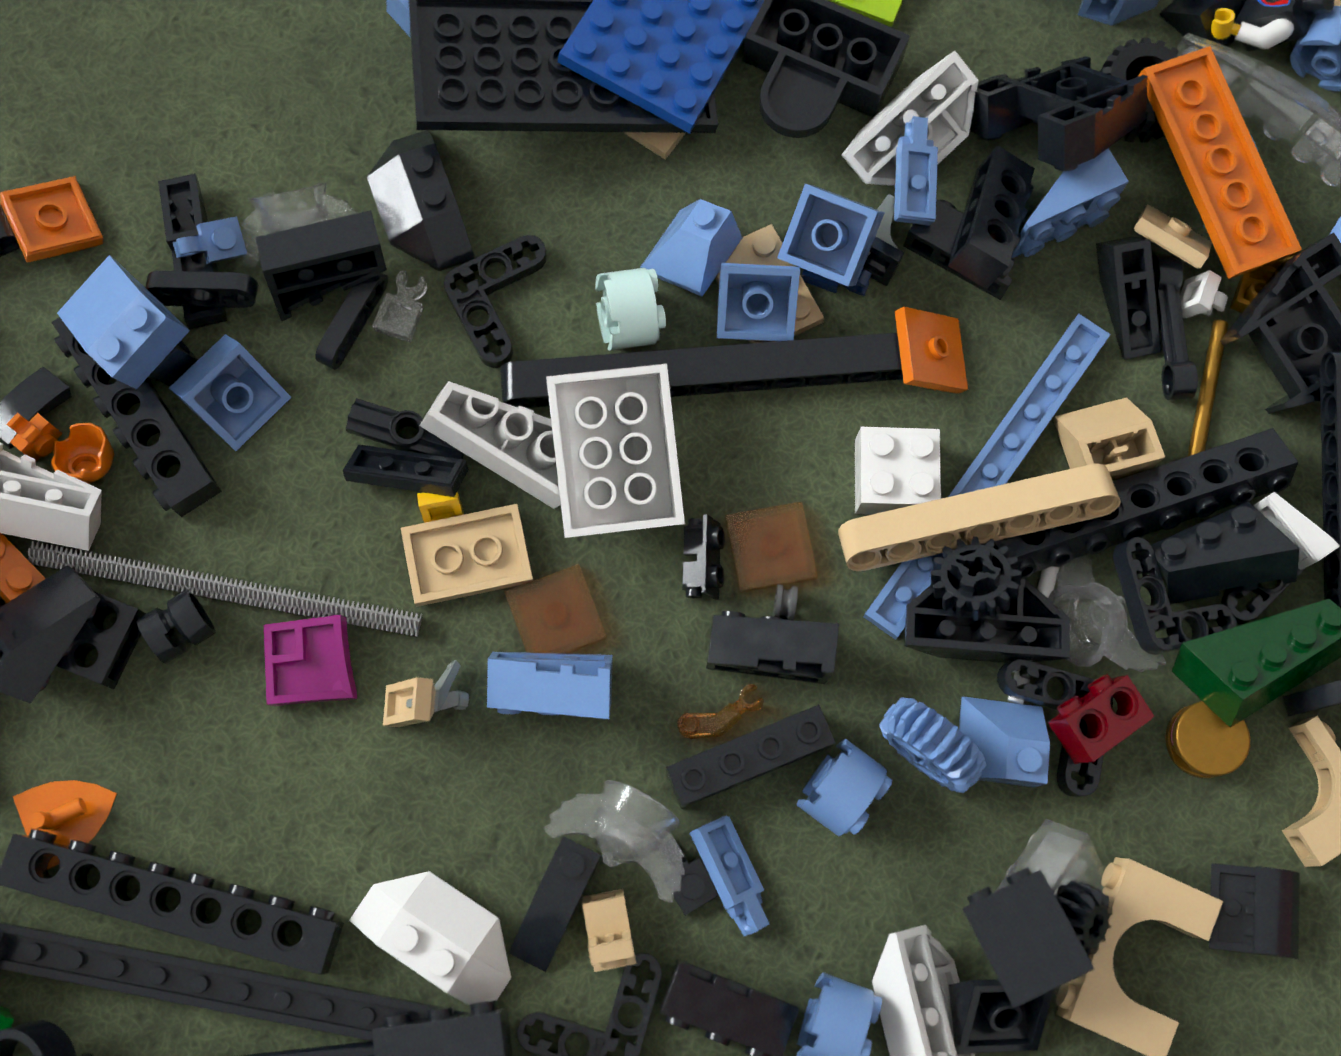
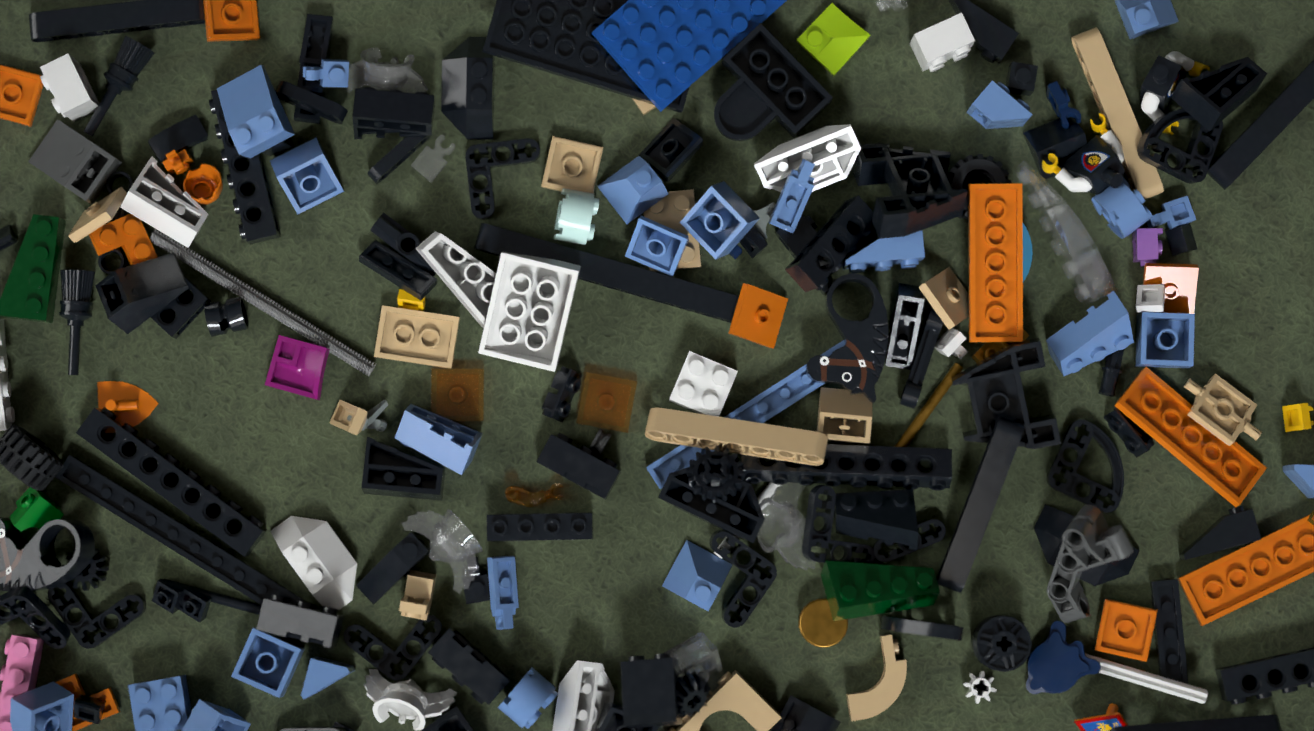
camera: 30 degrees right, 10 degrees up
(514, 759) = (399, 475): none -> black wedge
(594, 247) = (572, 165): none -> tan plate
(726, 176) = (671, 149): none -> black slope
(844, 789) = (587, 568): medium blue brick -> none
(933, 744) = (649, 562): medium blue gear -> none
(1093, 329) = (863, 356): none -> black animal
(1104, 726) = (759, 592): dark red brick -> none
(1306, 535) = (934, 524): white slope -> none

